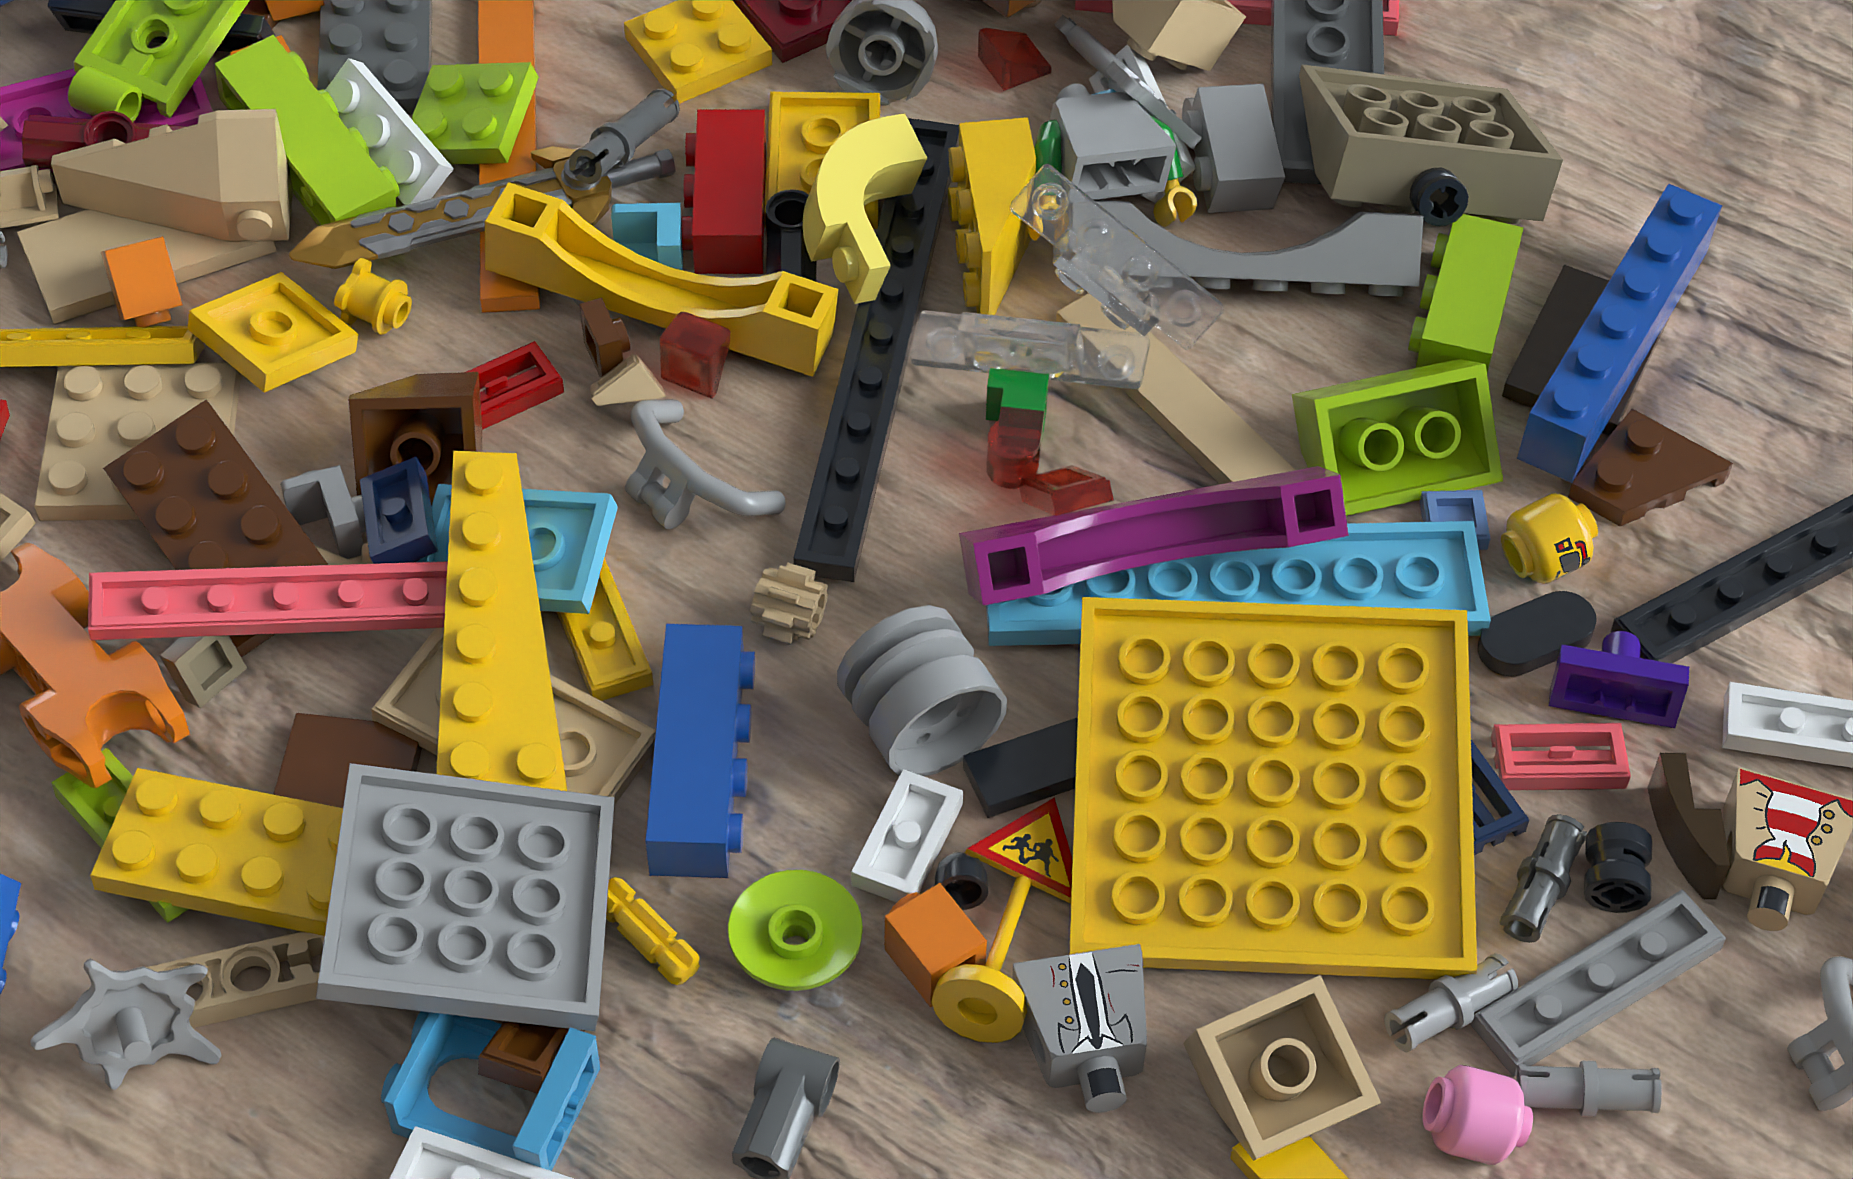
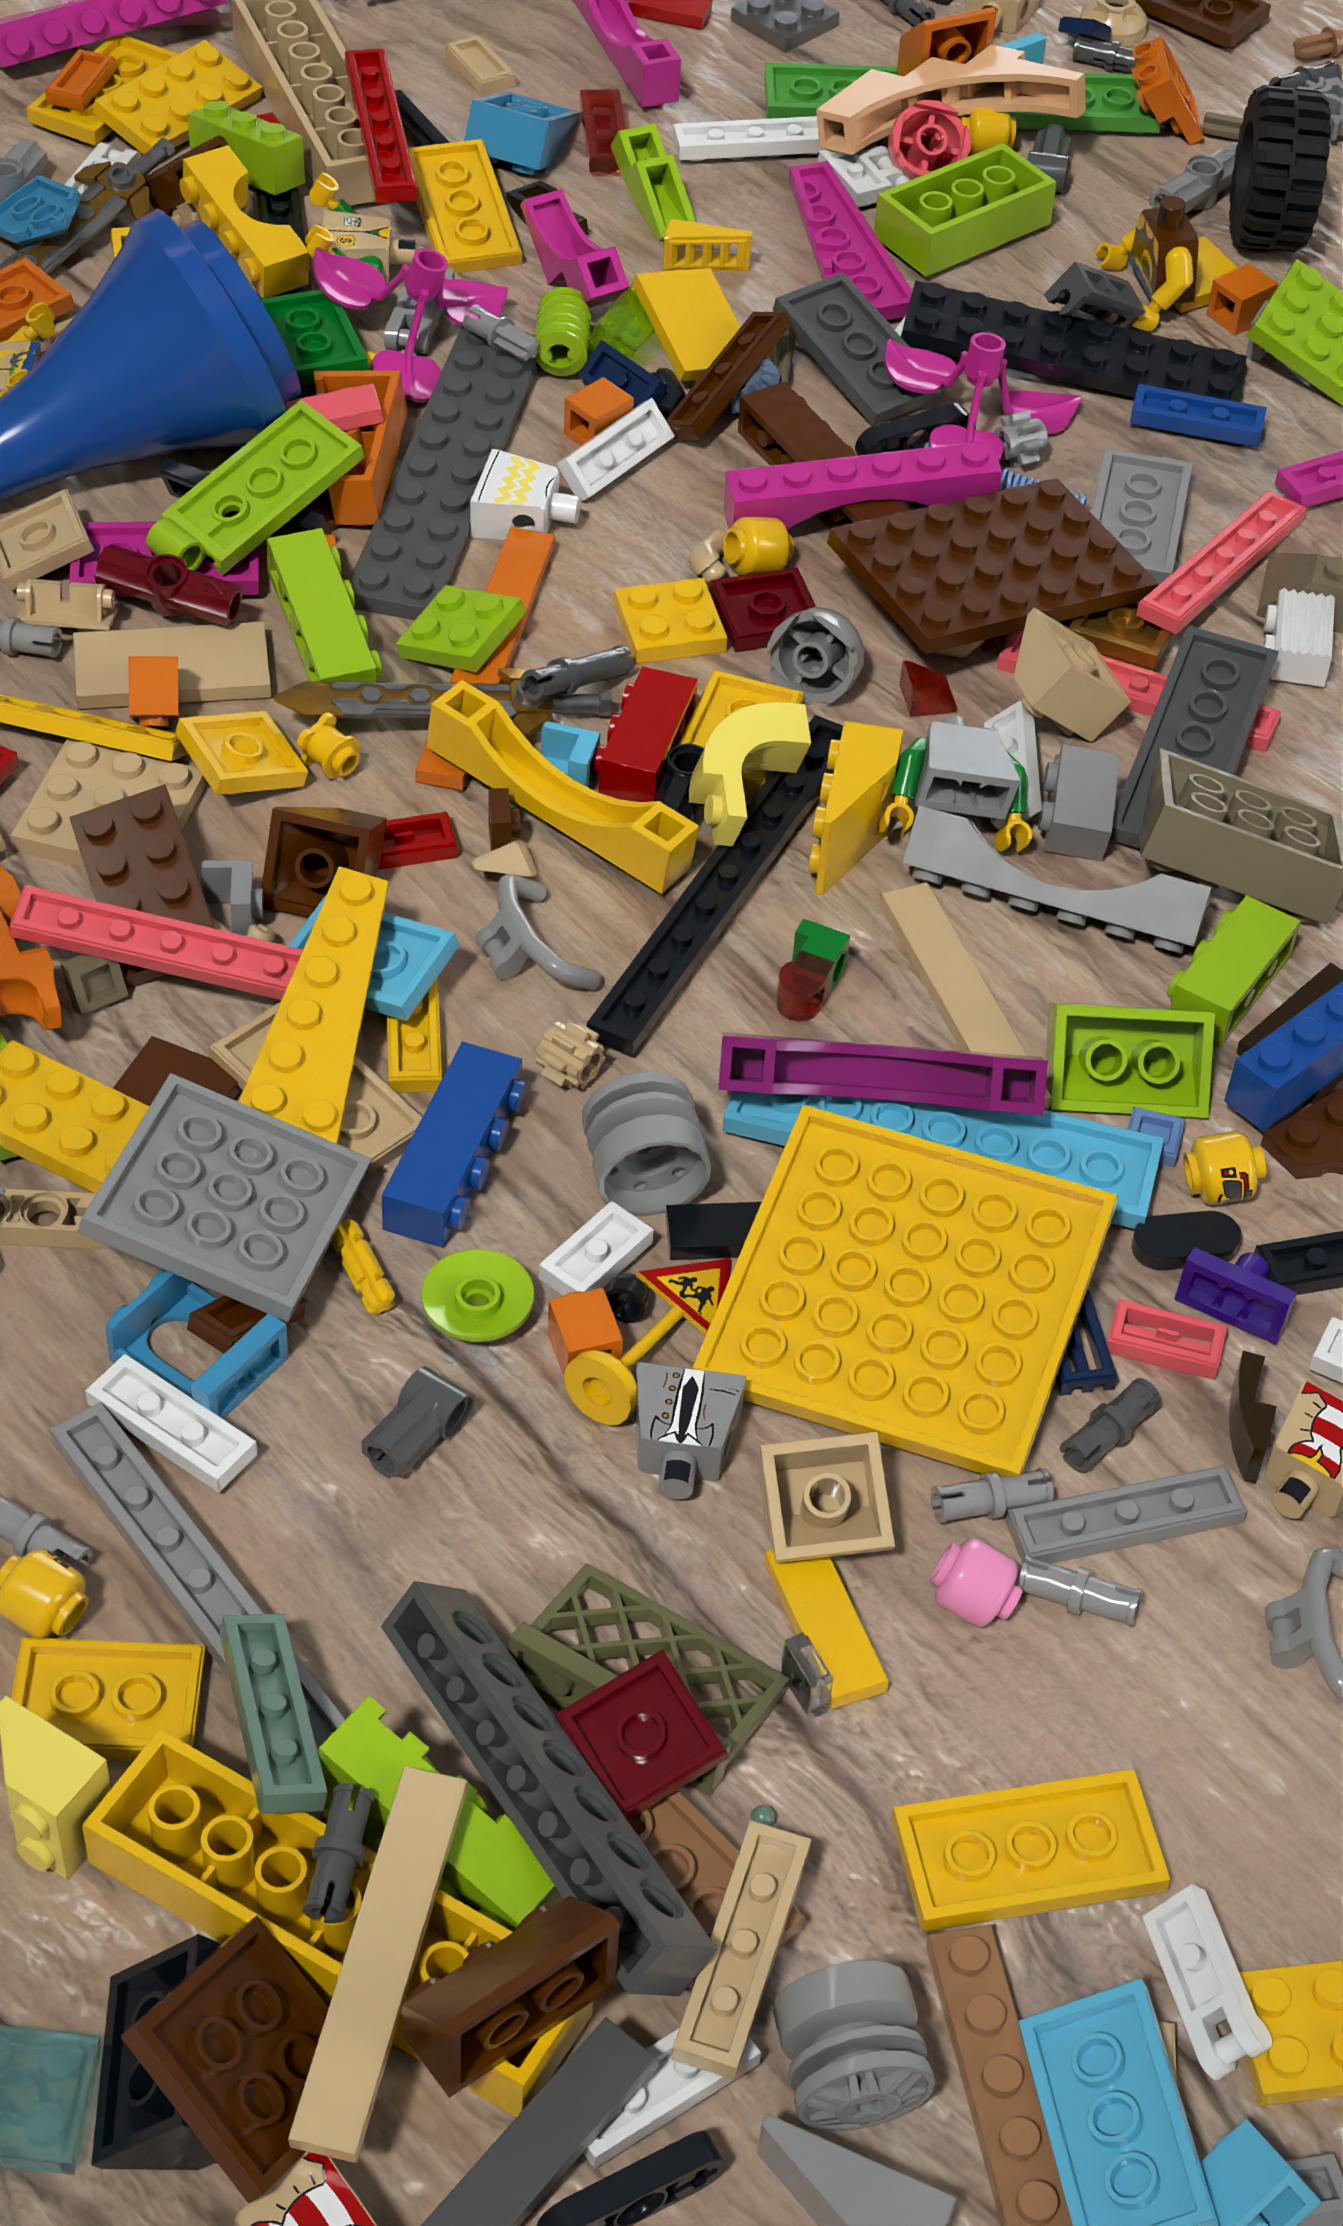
camera: 15 degrees right, 5 degrees down
(205, 179) = (230, 623): tan wedge -> none
(388, 133) = (389, 626): white plate -> none
(398, 514) = (284, 907): dark blue plate -> none
(694, 353) = (569, 850): clear red slope -> none
(1030, 345) = (847, 910): clear bracket -> none
(1065, 490) = (827, 1025): clear red tile -> none
(1113, 262) = (934, 861): clear bracket -> none
(1119, 74) = (1004, 726): light grey piece -> none
(1446, 182) = (1233, 893): black bush -> none
(1618, 871) = (1175, 1433): black wheel -> none

